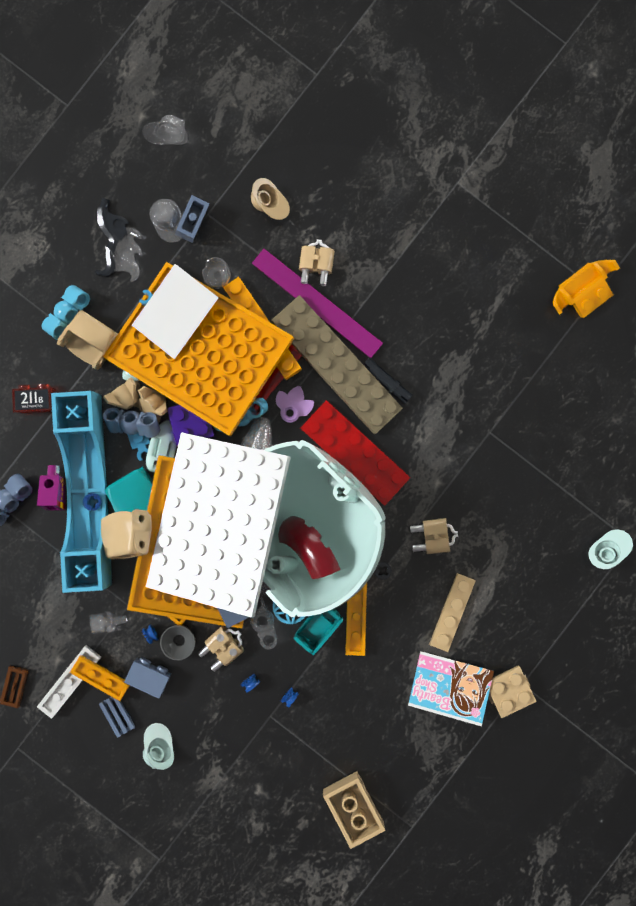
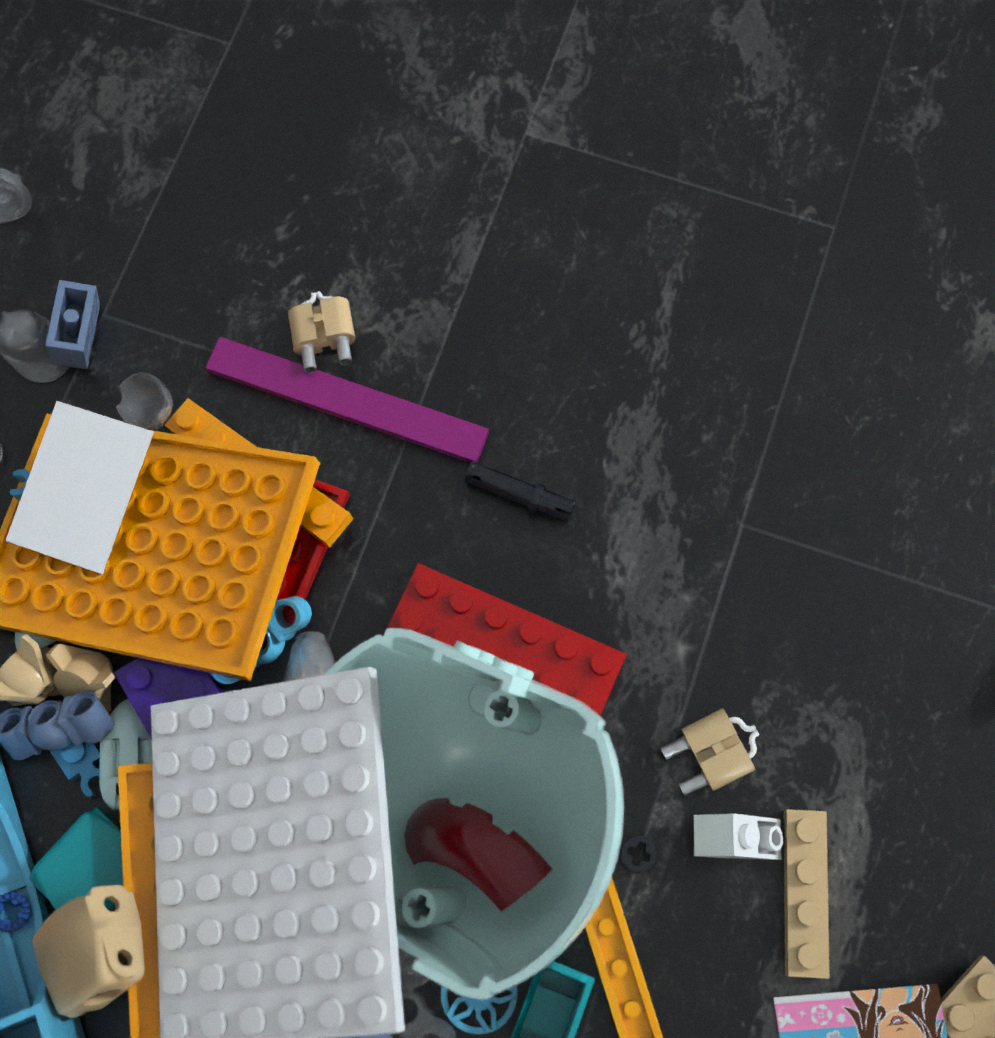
camera: 15 degrees left, 15 degrees down
(269, 199) = (201, 252): tan piece -> none
(293, 401) = (362, 588): lavender plate -> none
(337, 365) = (421, 494): dark tan plate -> none
(430, 578) = (737, 836): none -> white slope
(586, 288) = (812, 225): light orange plate -> none

